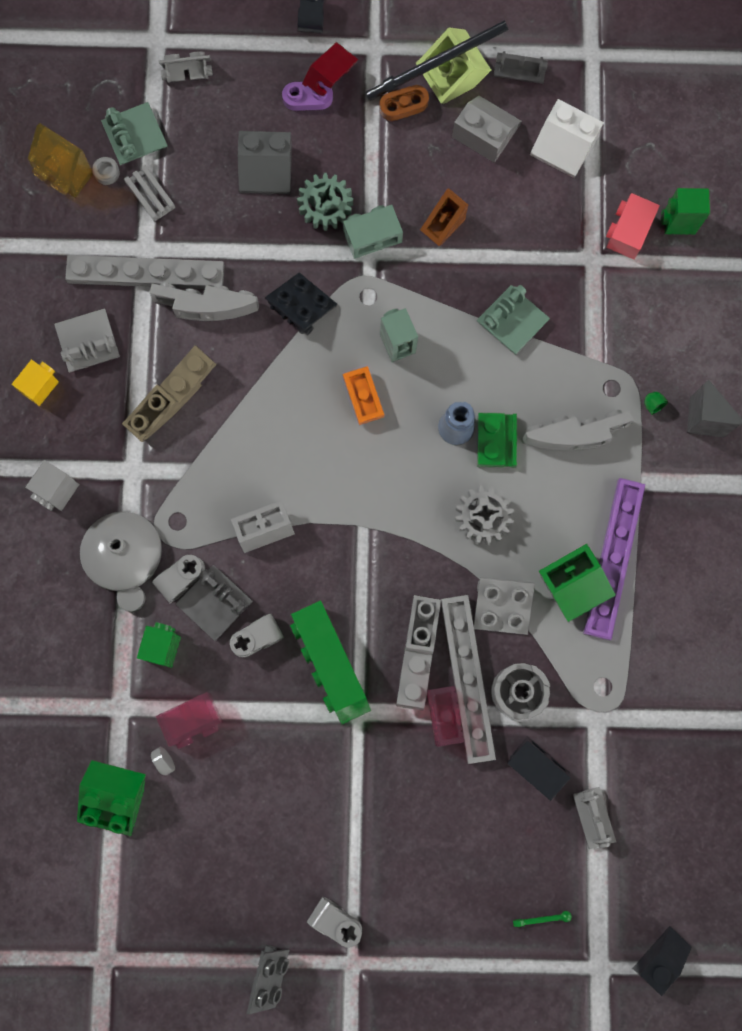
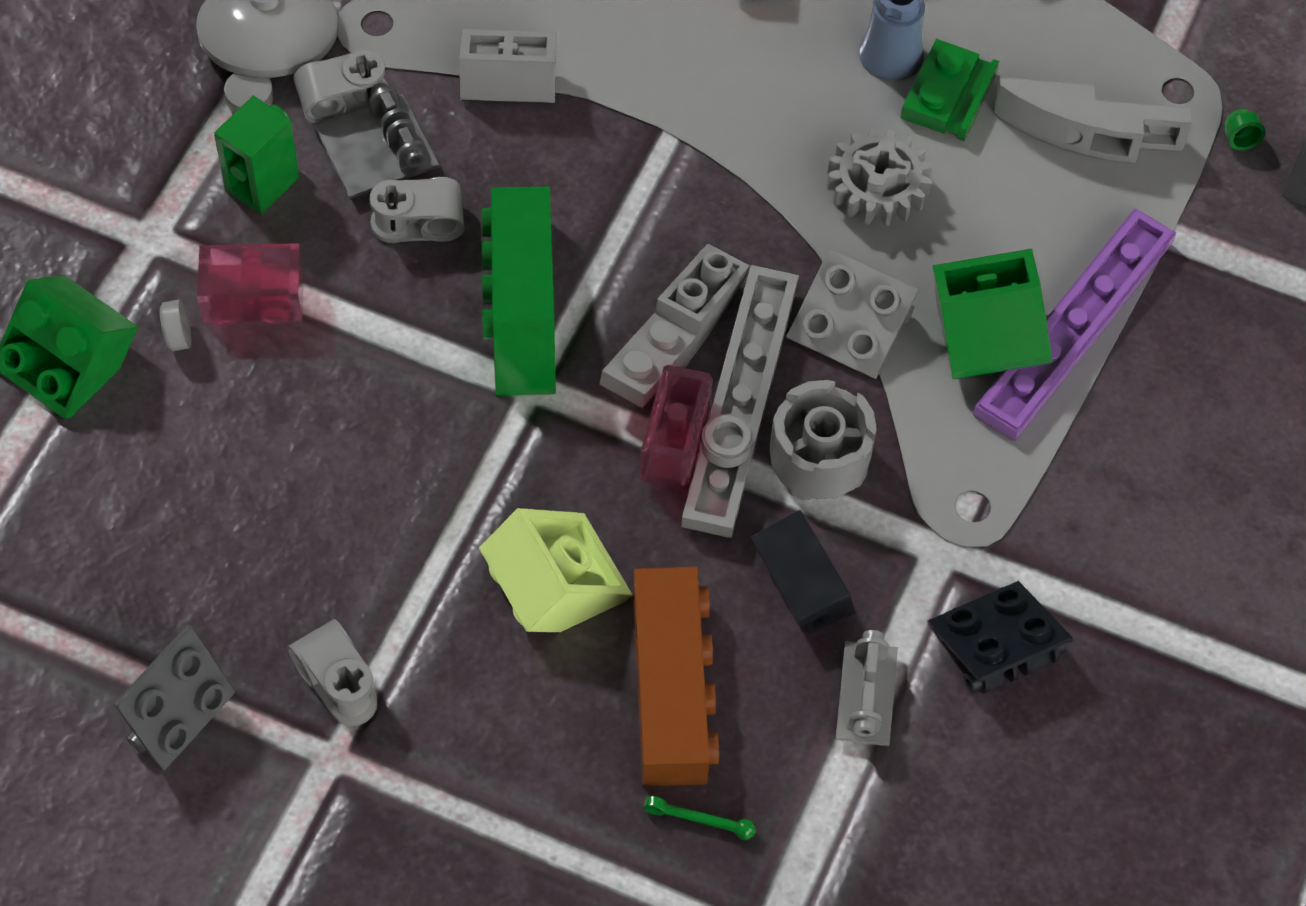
camera: 25 degrees right, 20 degrees down
(418, 820) = (553, 569): none -> yellowish green slope
(474, 712) = (727, 440): none -> light grey tile
(500, 855) = (671, 677): none -> dark orange brick
(645, 759) = (1000, 636): none -> black hinge

